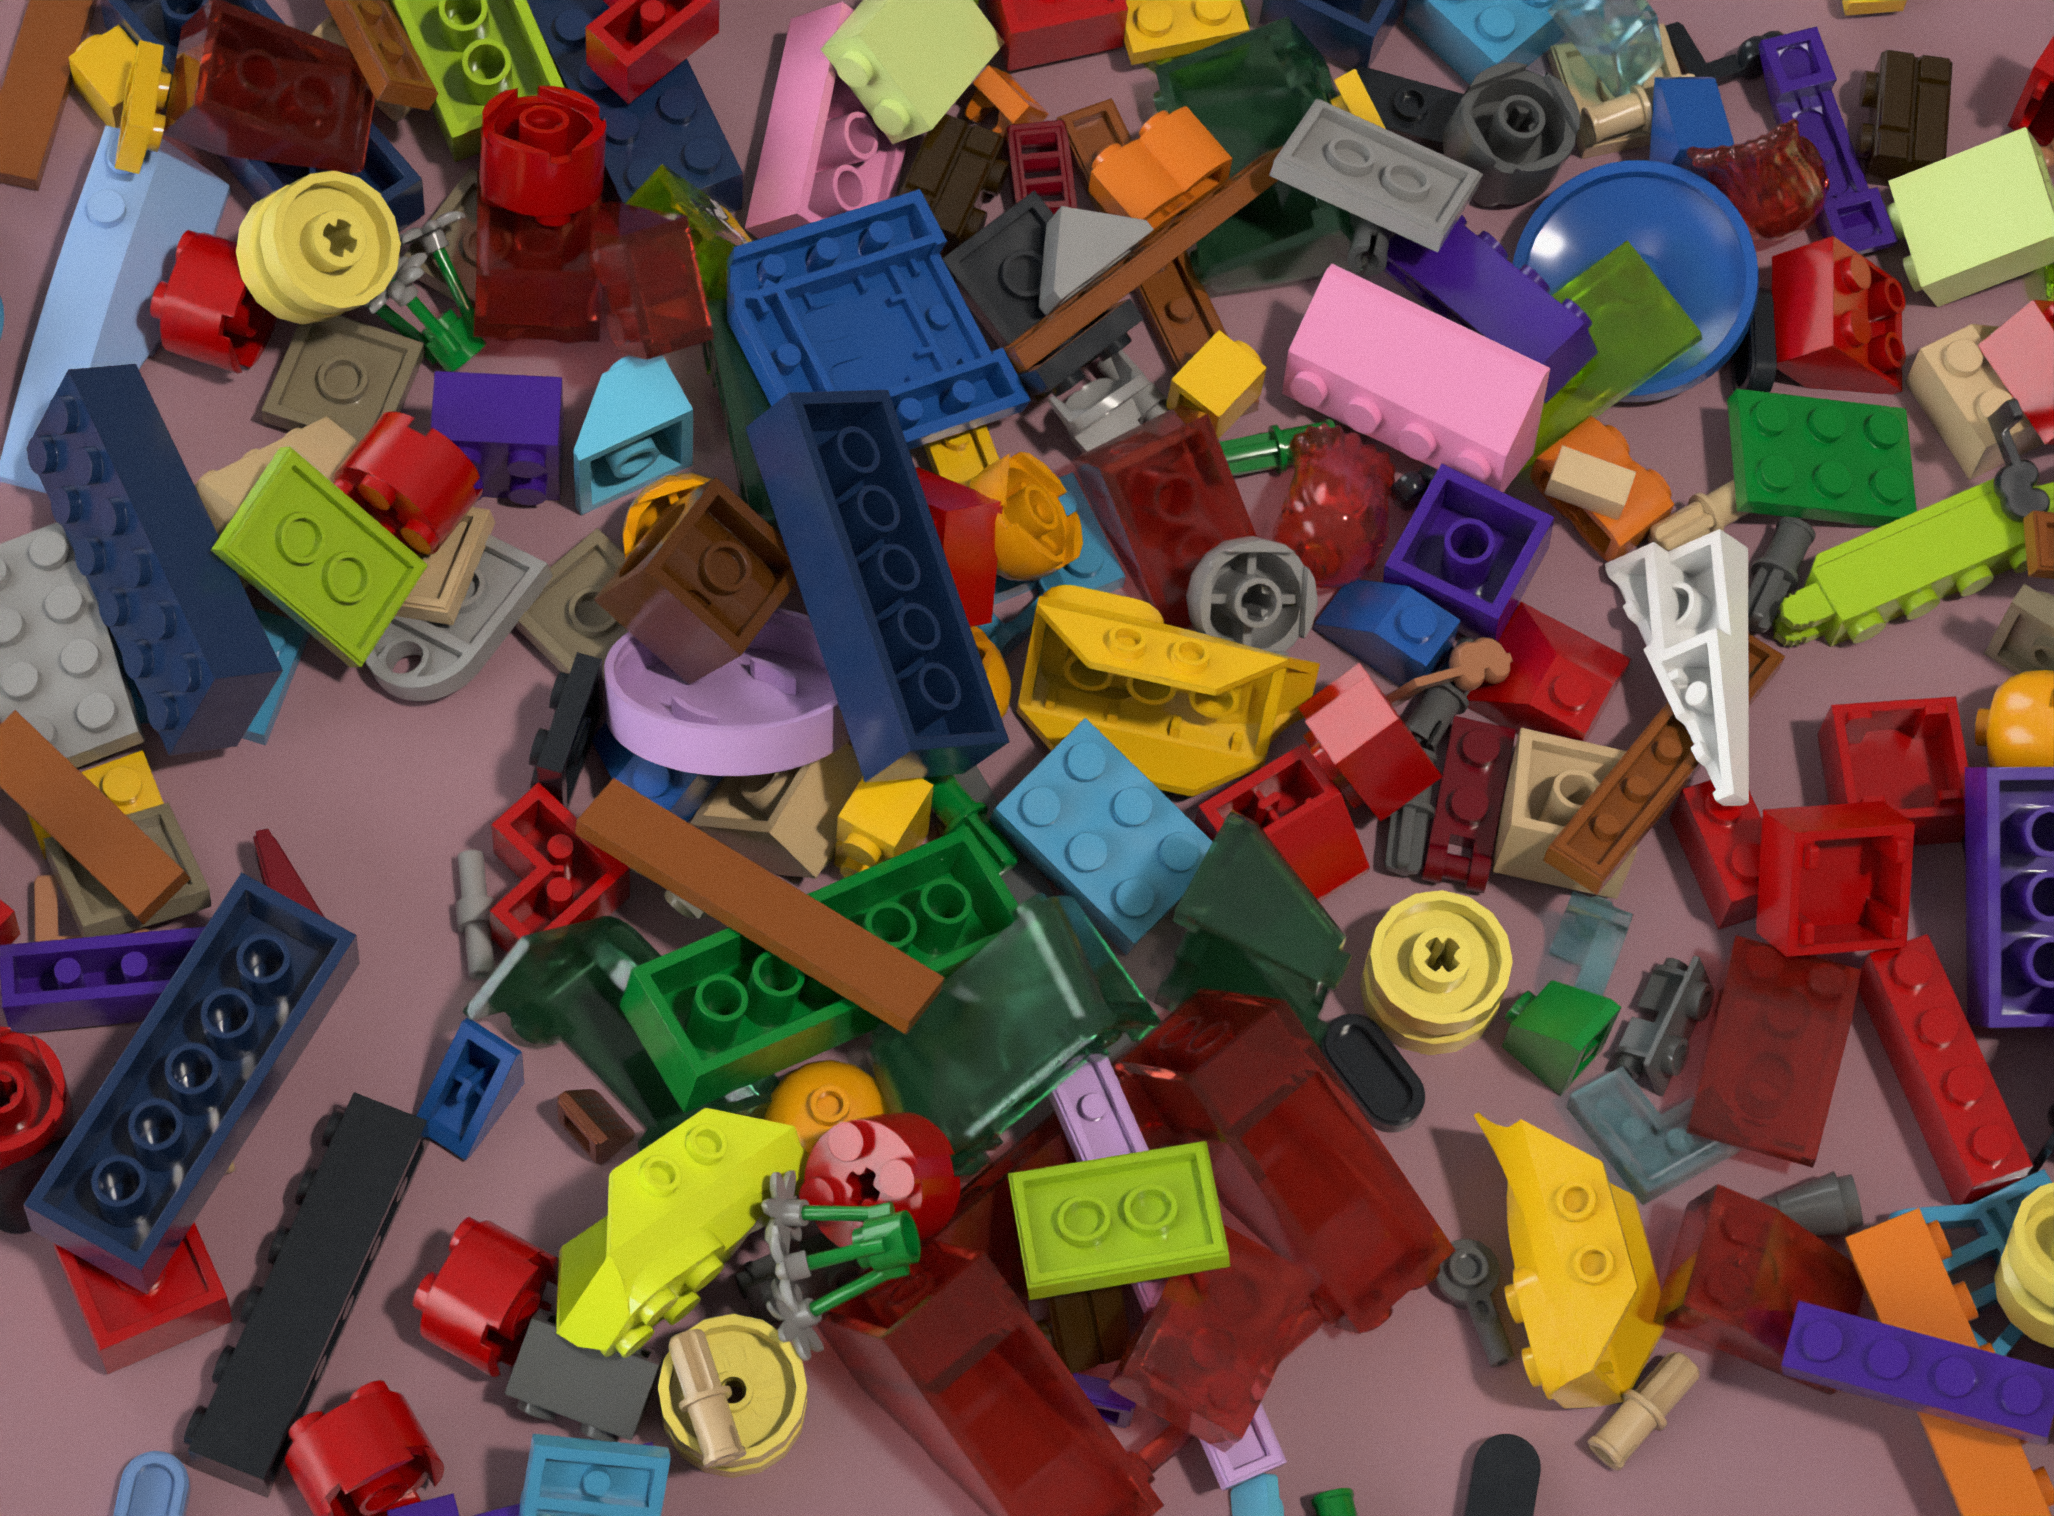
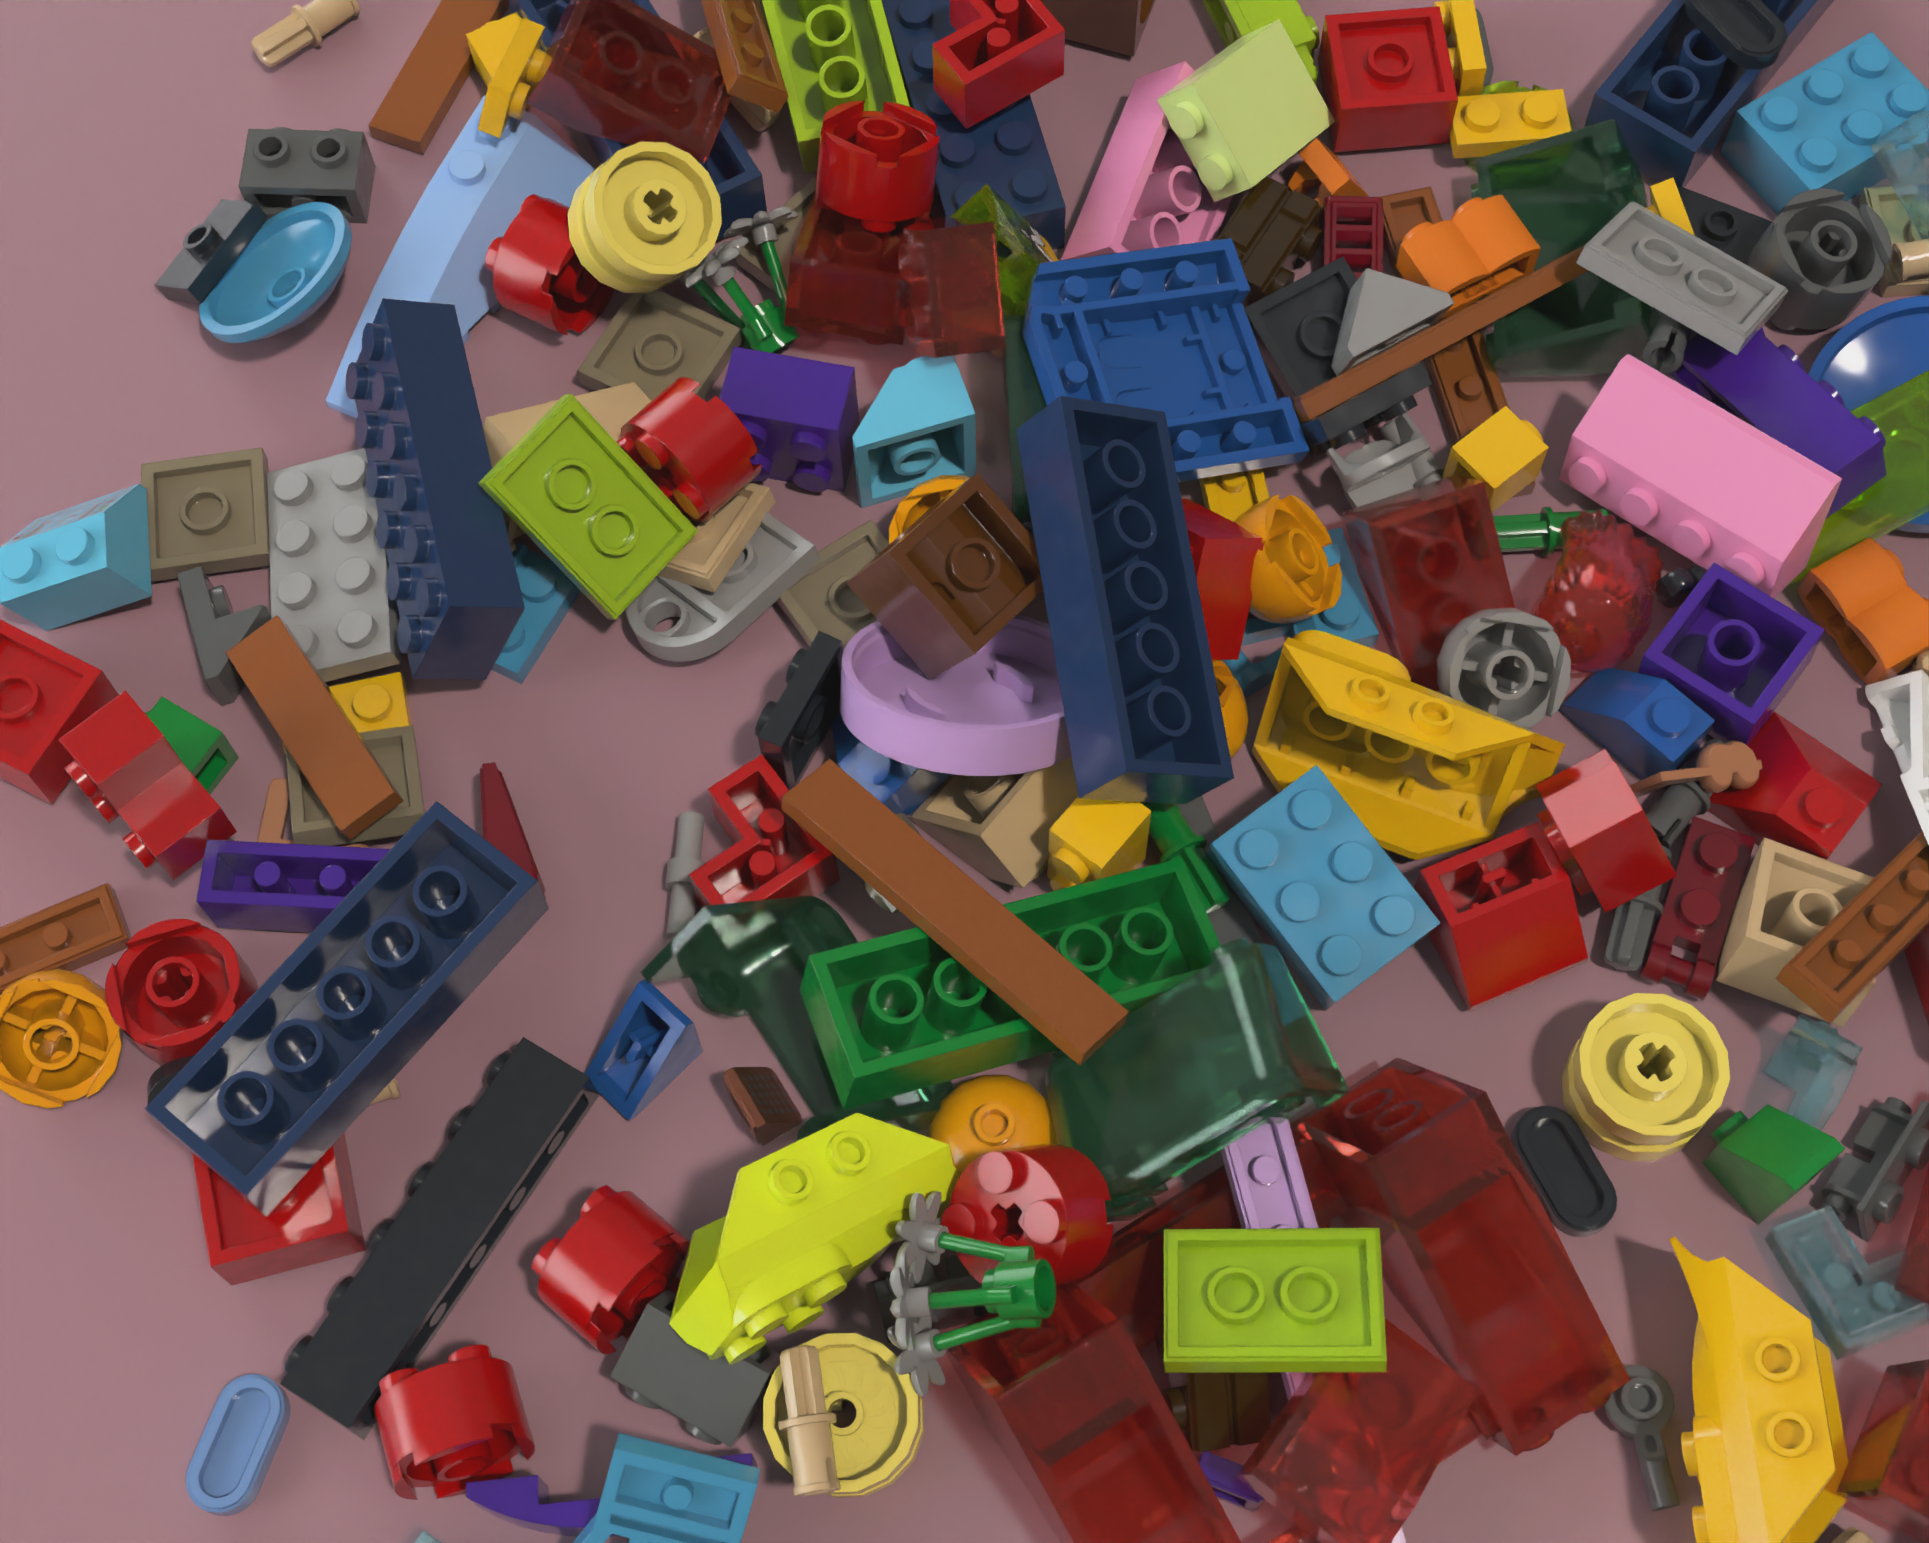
camera: 20 degrees right, 0 degrees up
(1255, 930) = (1464, 1009): clear green windscreen -> none
(1590, 482) = (1864, 601): tan piece -> none

